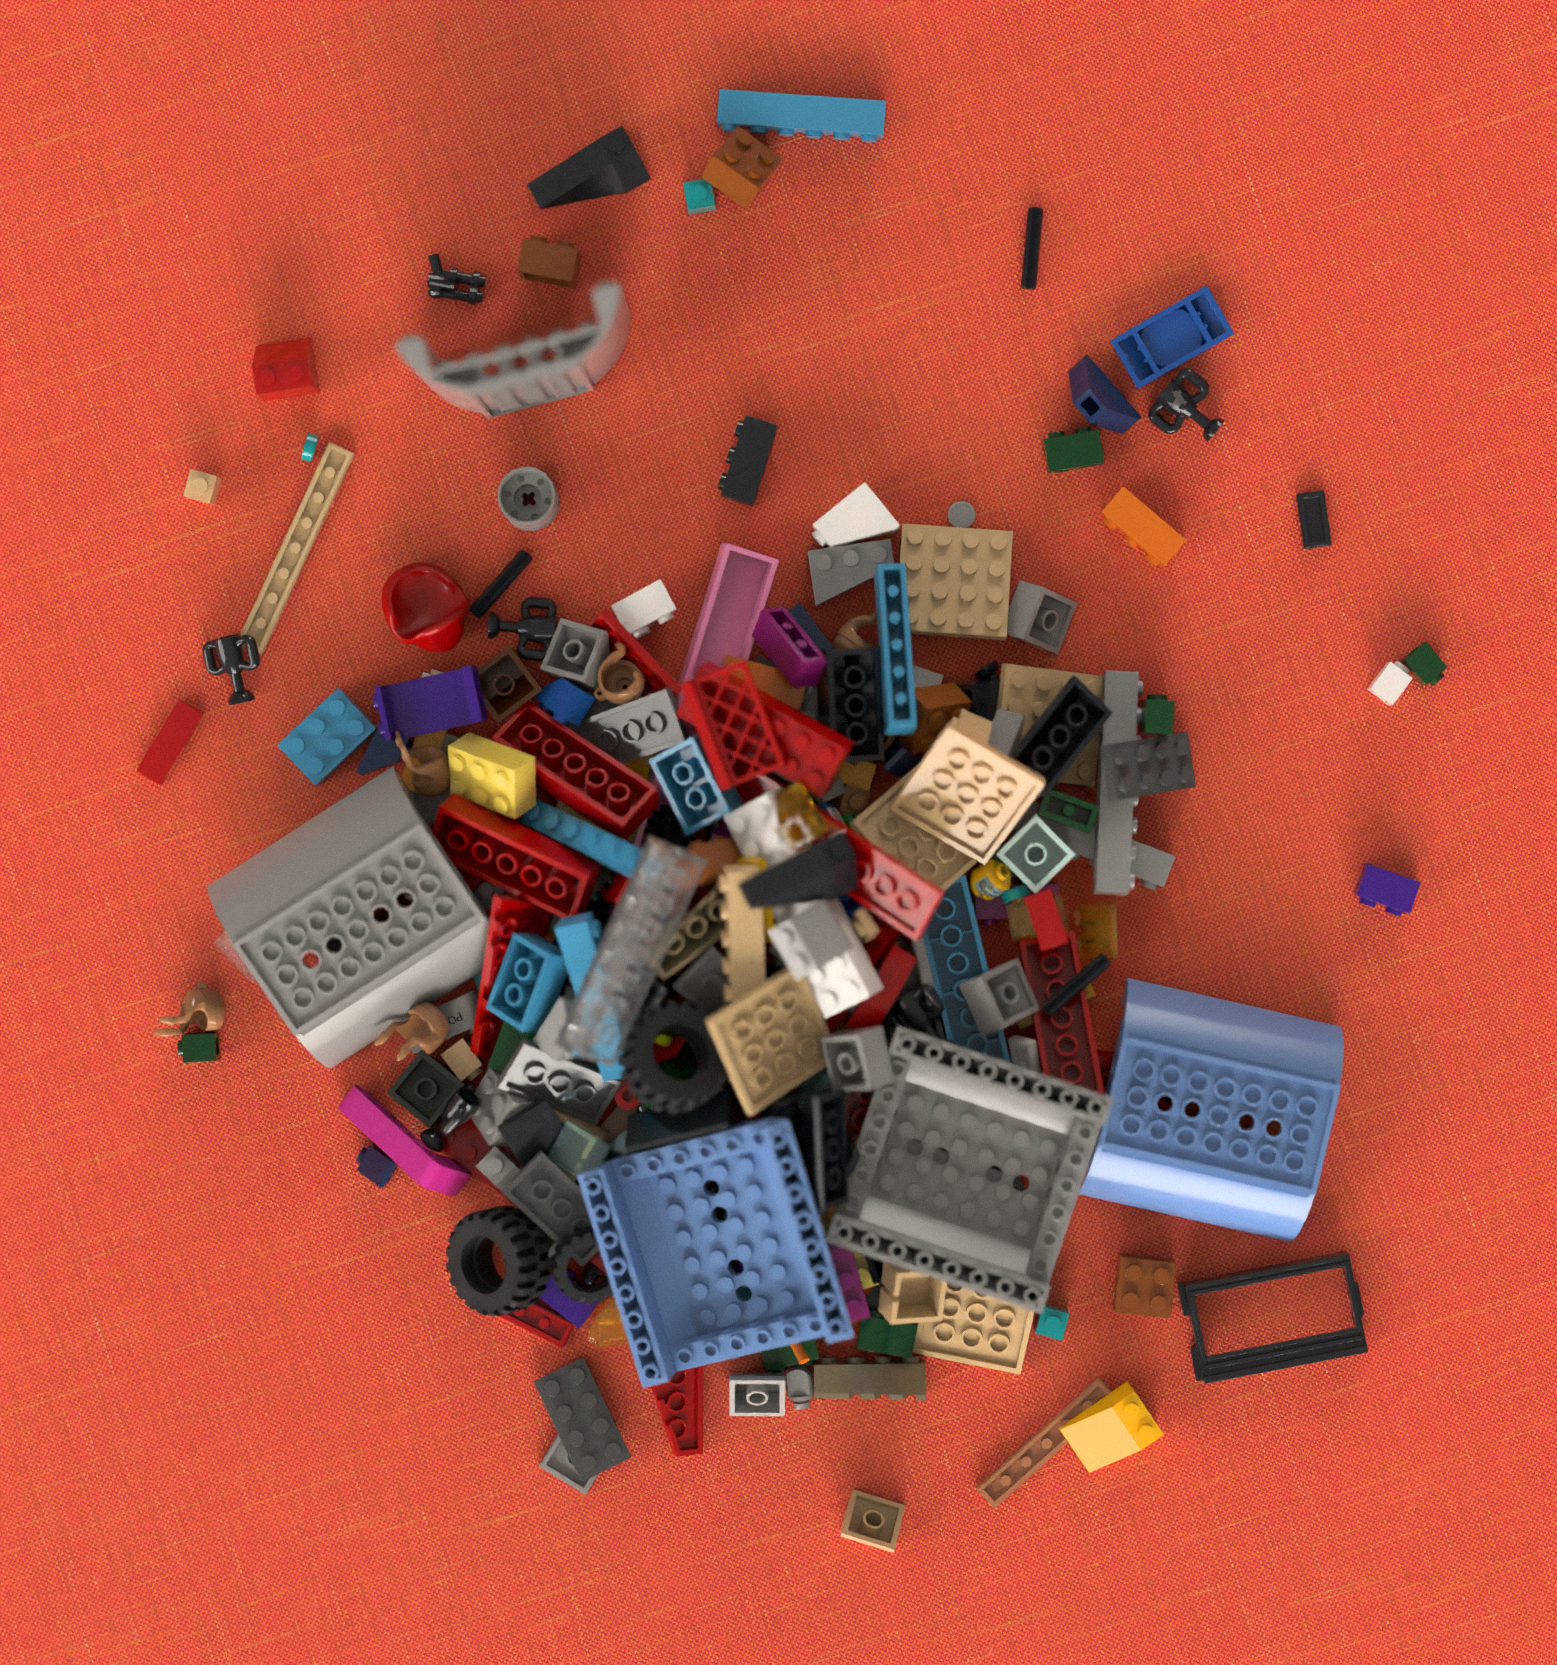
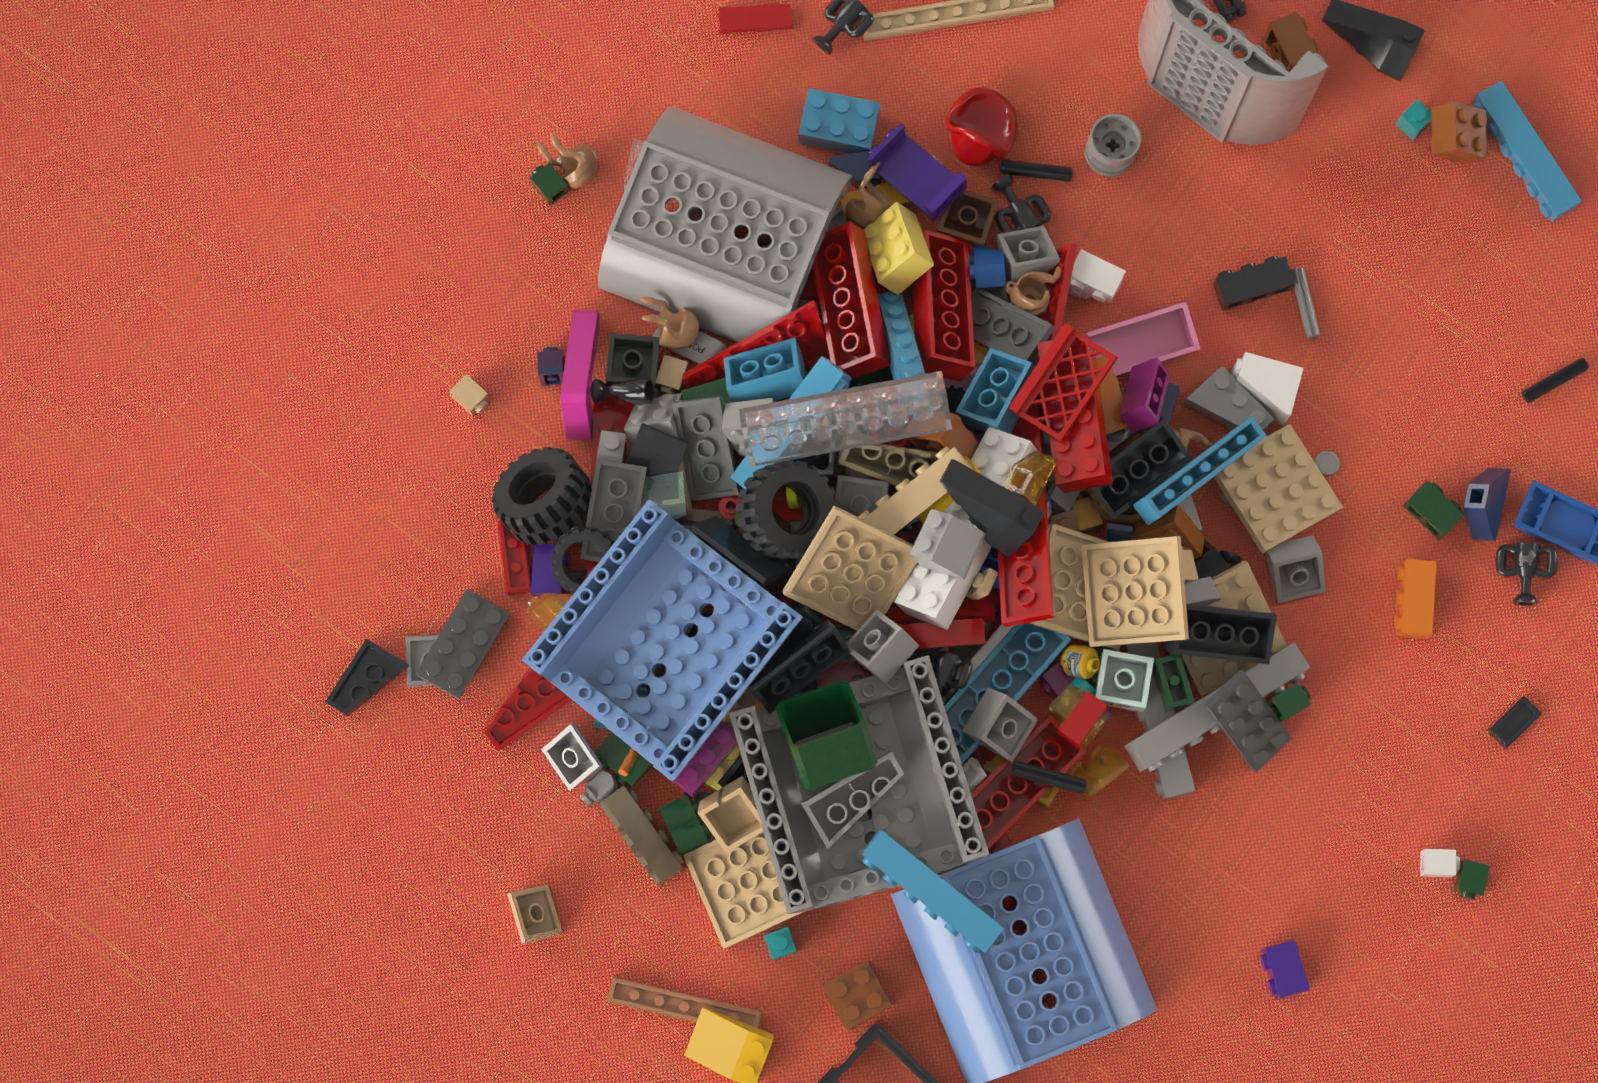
camera: 55 degrees right, 10 degrees down
(354, 1257) = (470, 396): none -> tan brick
(551, 1528) = (364, 677): none -> black wing
(799, 425) = (1305, 303): none -> light grey axle
(906, 1168) = (826, 735): none -> dark green plate
(974, 1187) = (847, 800): none -> light grey wedge
(1108, 1169) = (932, 891): none -> dark azure brick

